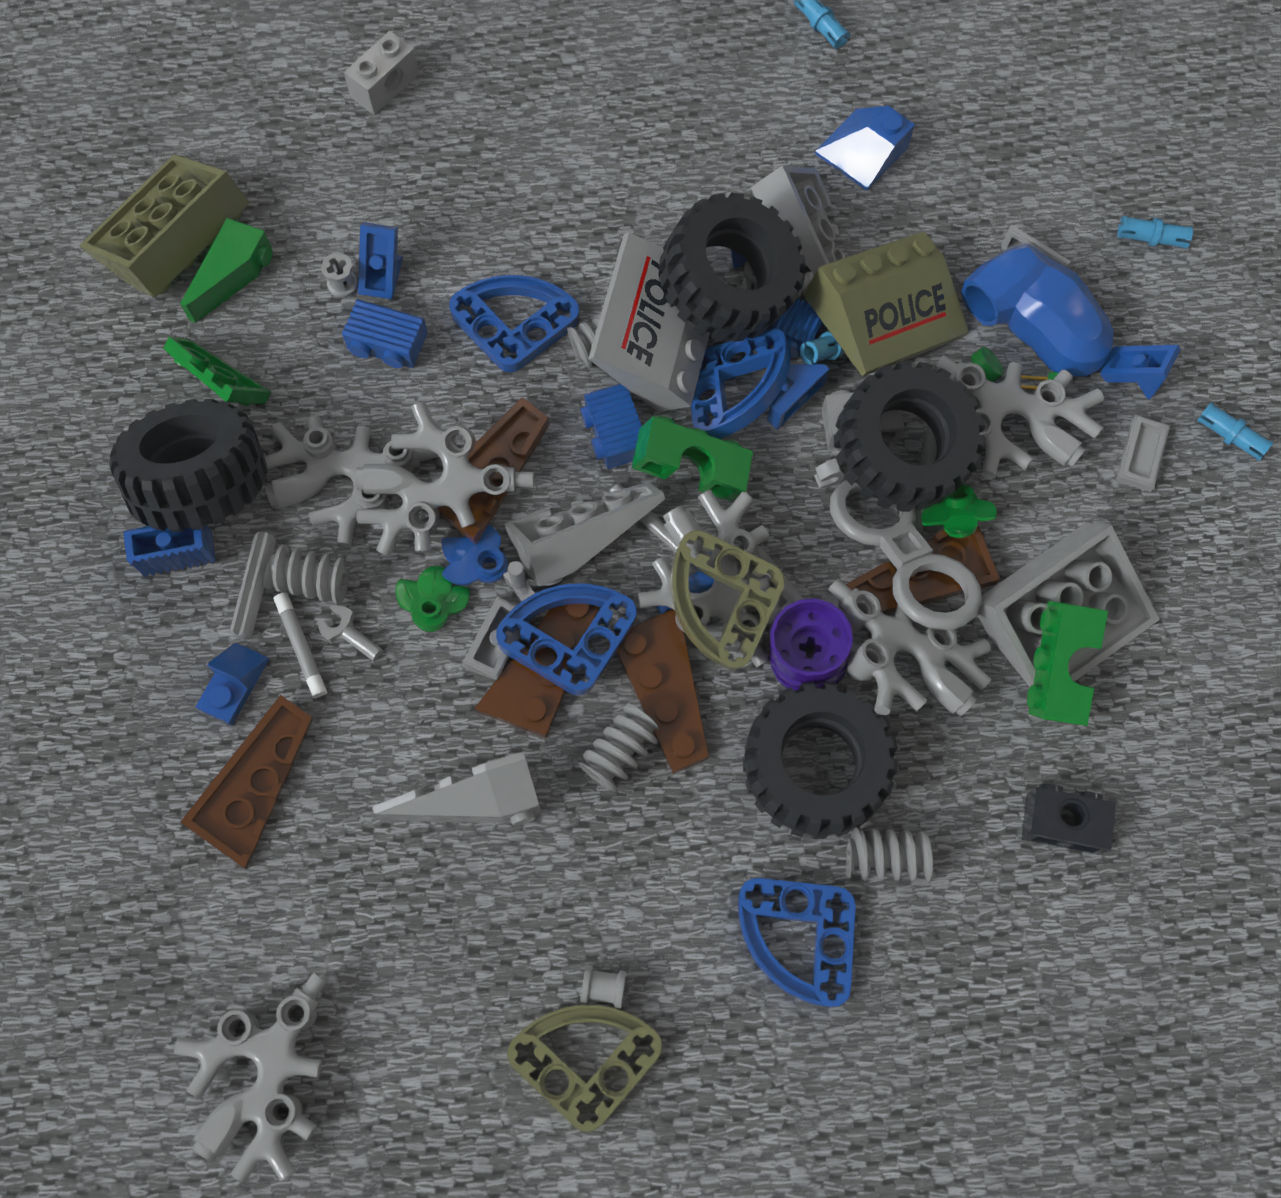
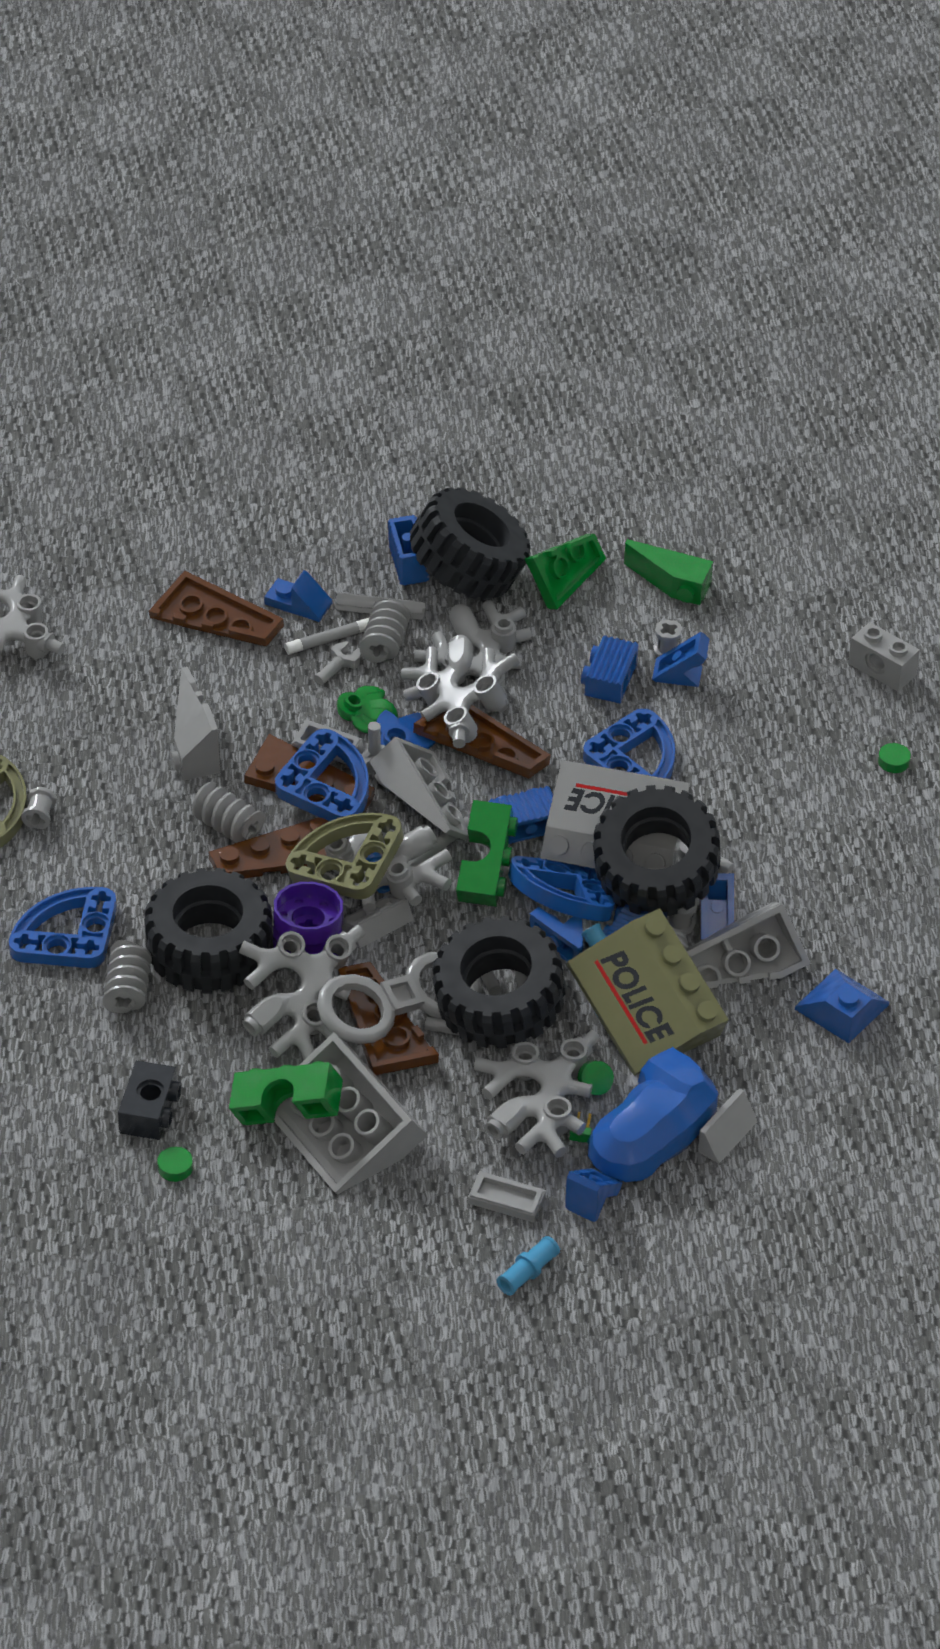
camera: 90 degrees right, 25 degrees down
(166, 224) = (712, 531): olive slope -> none
(522, 81) = (894, 758): none -> green tile
(959, 513) = (439, 1041): green plate -> none
(1143, 788) = (175, 1164): none -> green tile
(1155, 232) = (757, 1226): dark azure pin -> none

